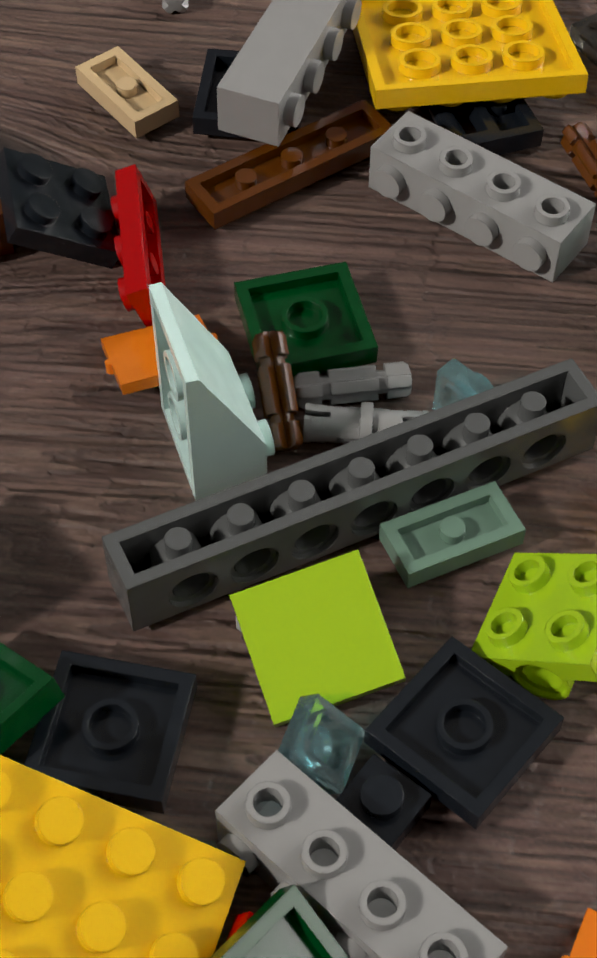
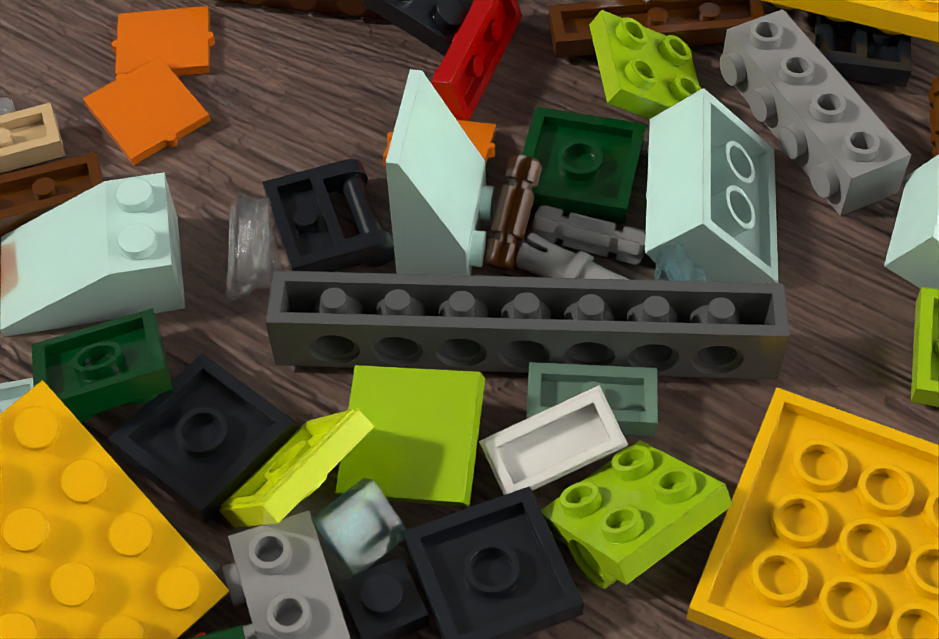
camera: 30 degrees right, 0 degrees up
(51, 526) = (250, 247): none -> clear piece
(84, 481) = (310, 226): none -> black plate
(236, 719) = (295, 469): none -> neon yellow plate
(319, 212) = (641, 66): none -> lime plate
(438, 302) = (712, 191): none -> light aqua slope
(448, 588) = (554, 442): none -> white tile

